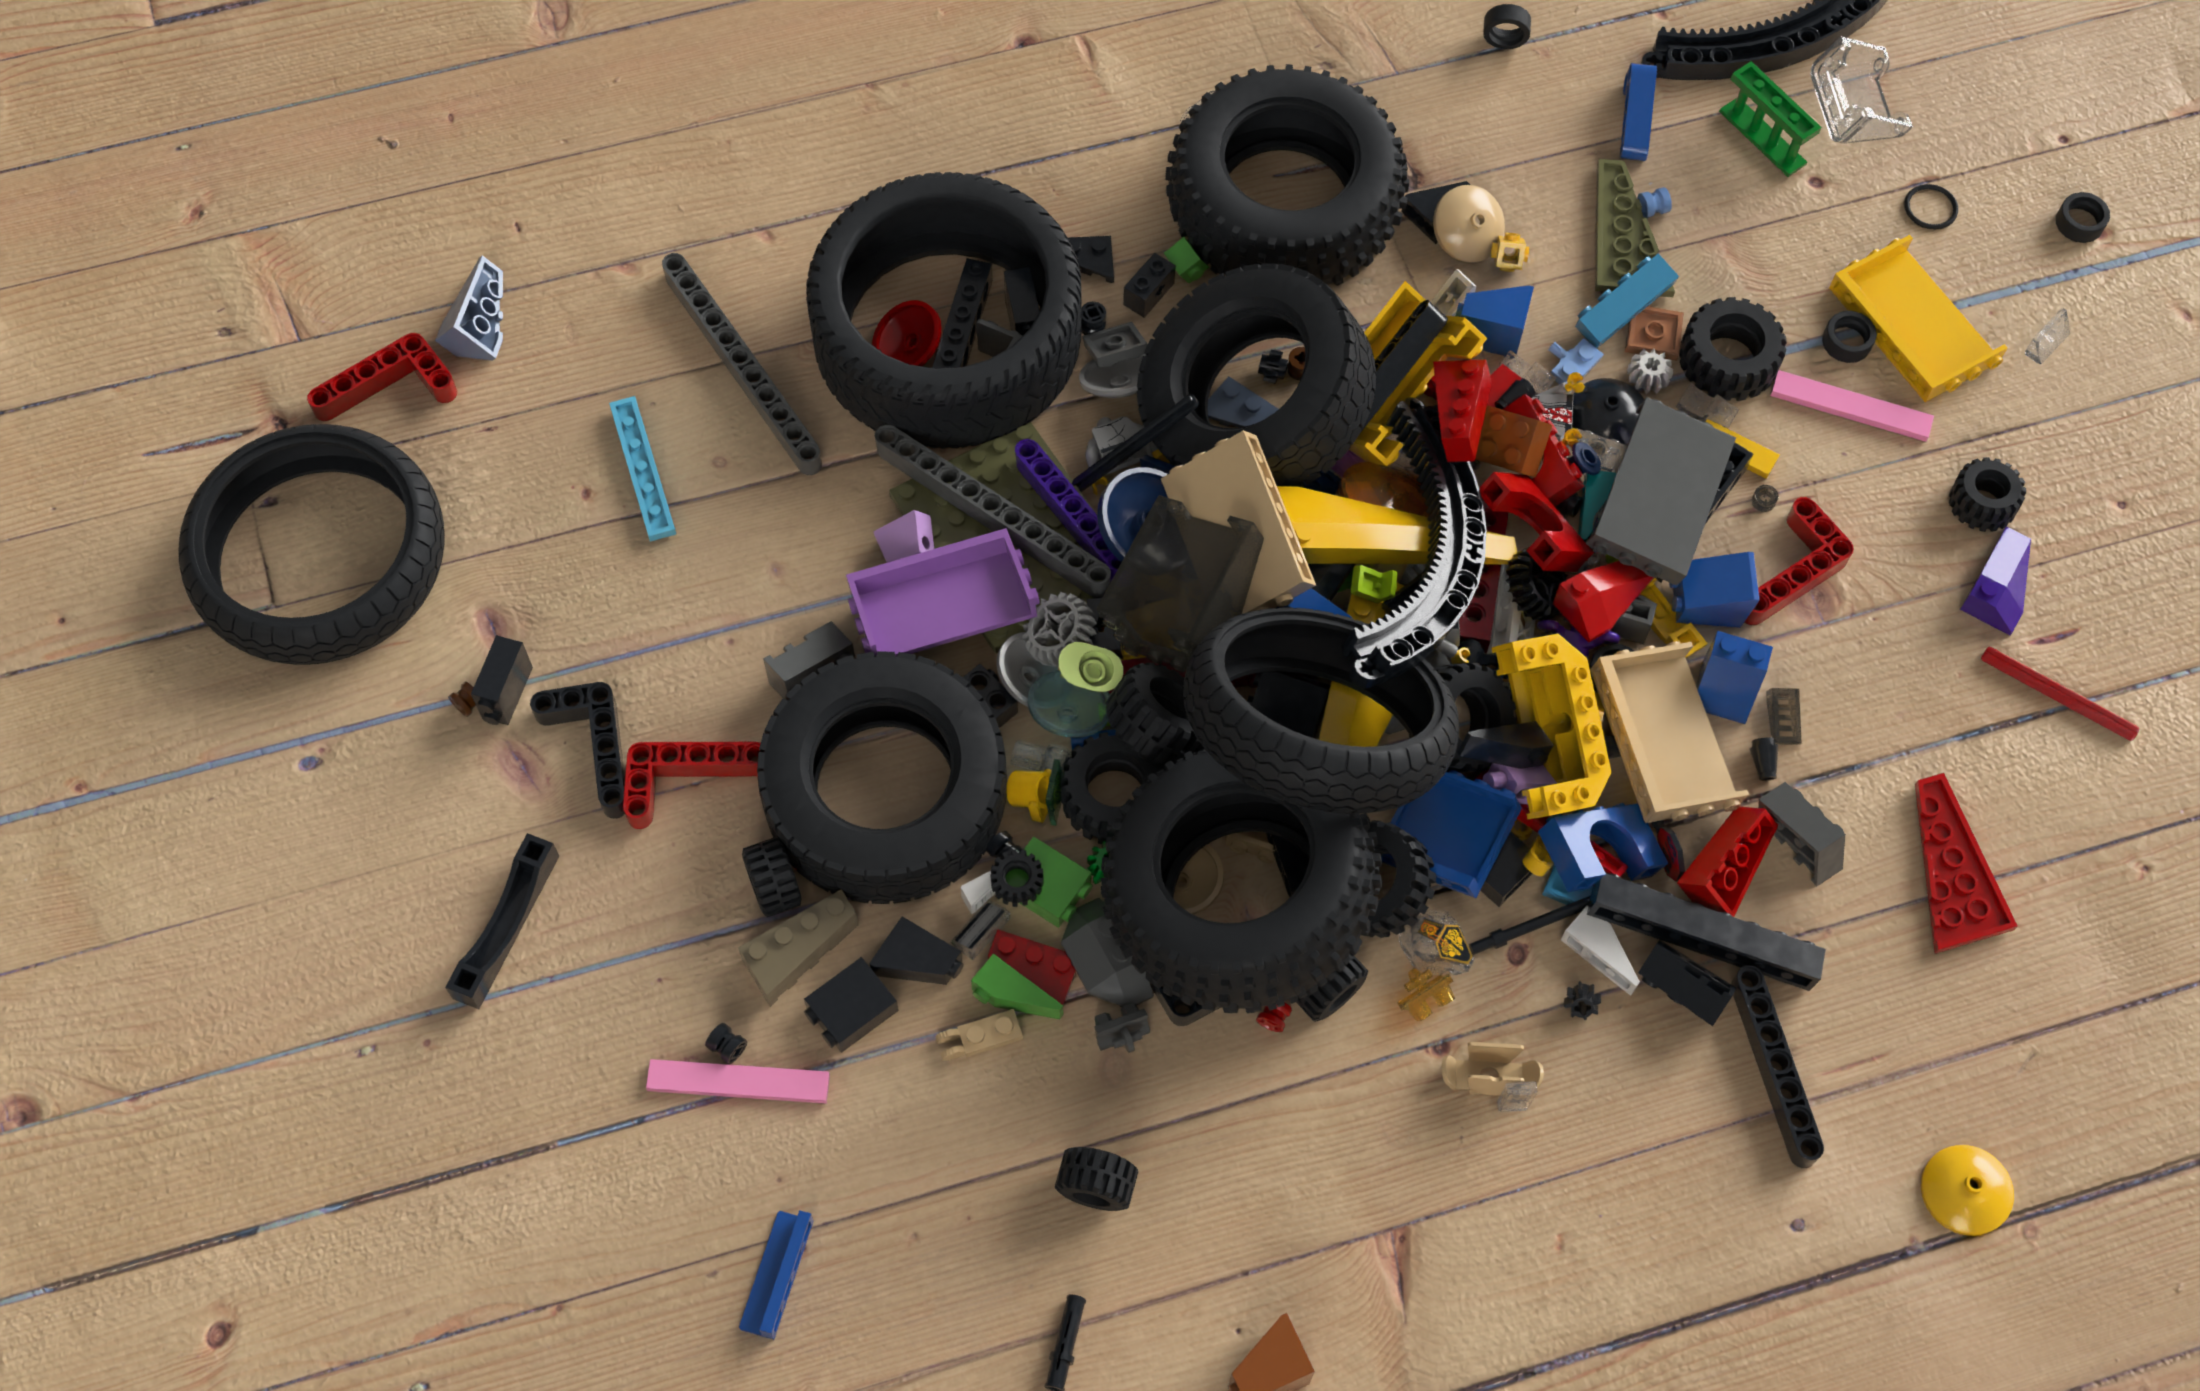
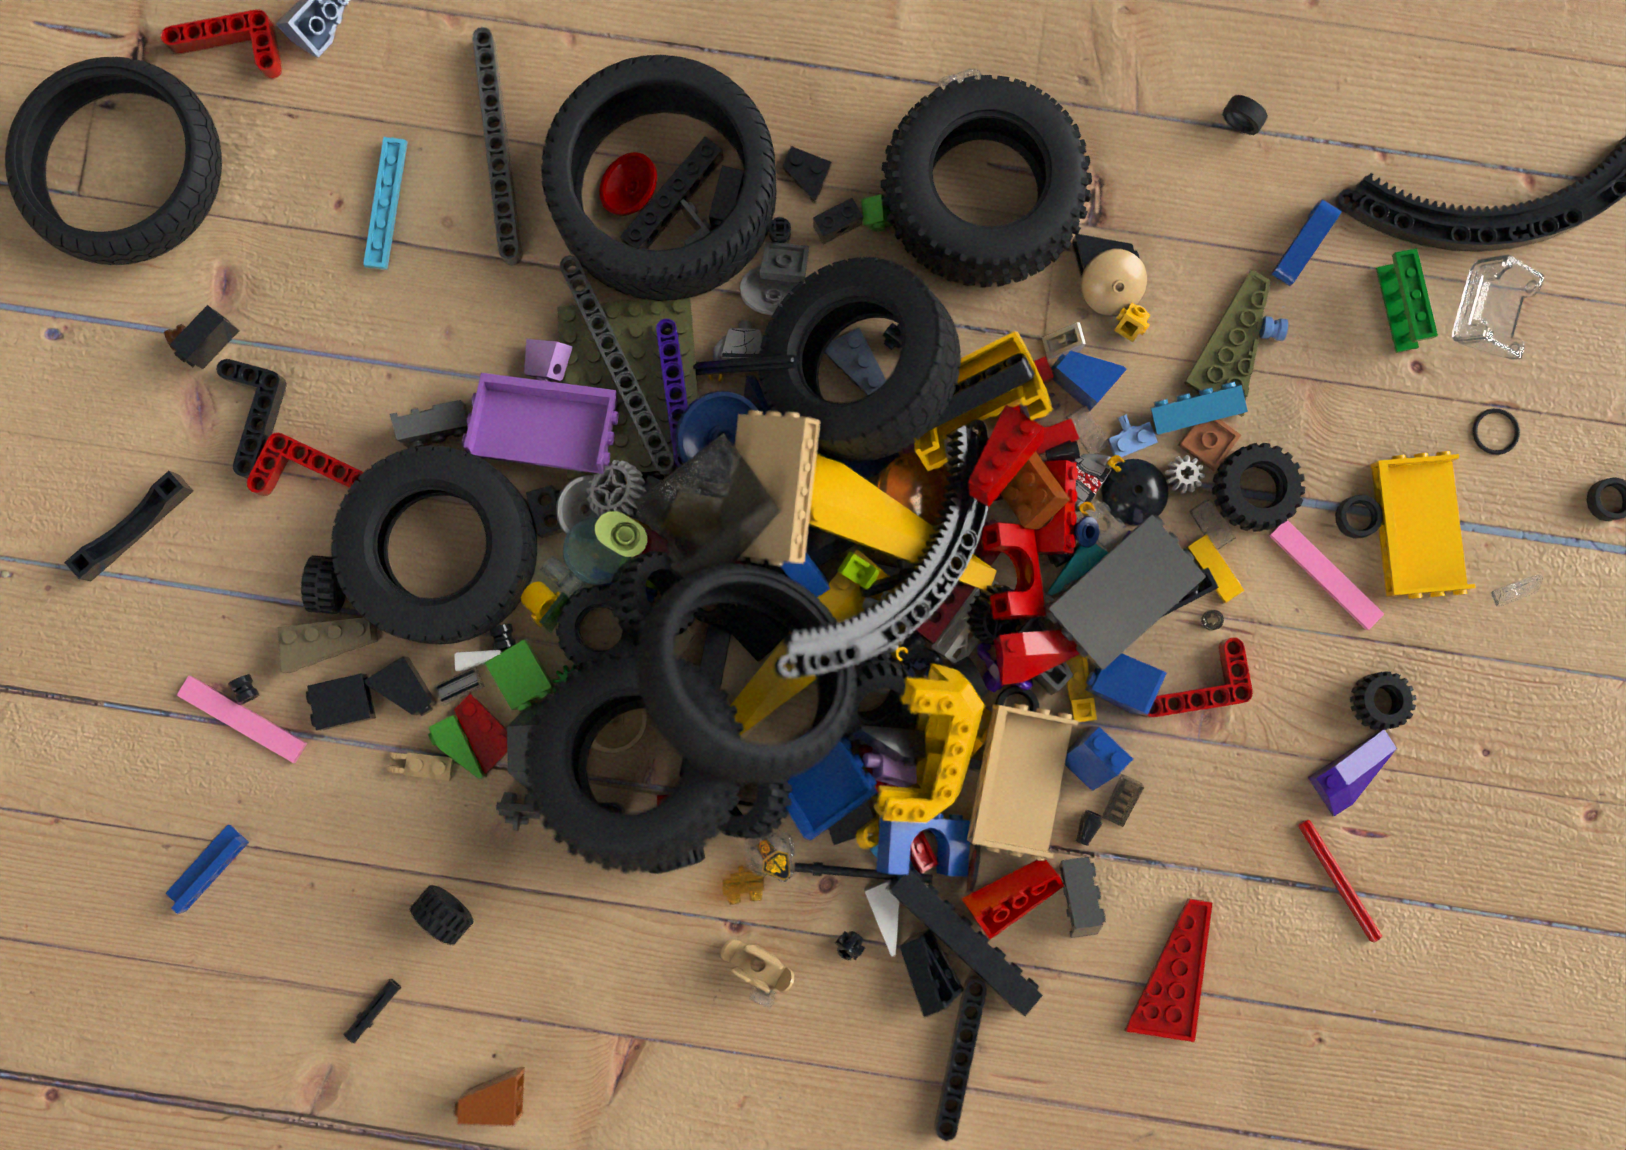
camera: 25 degrees right, 20 degrees up
(1016, 894) = (507, 668): black tyre -> none

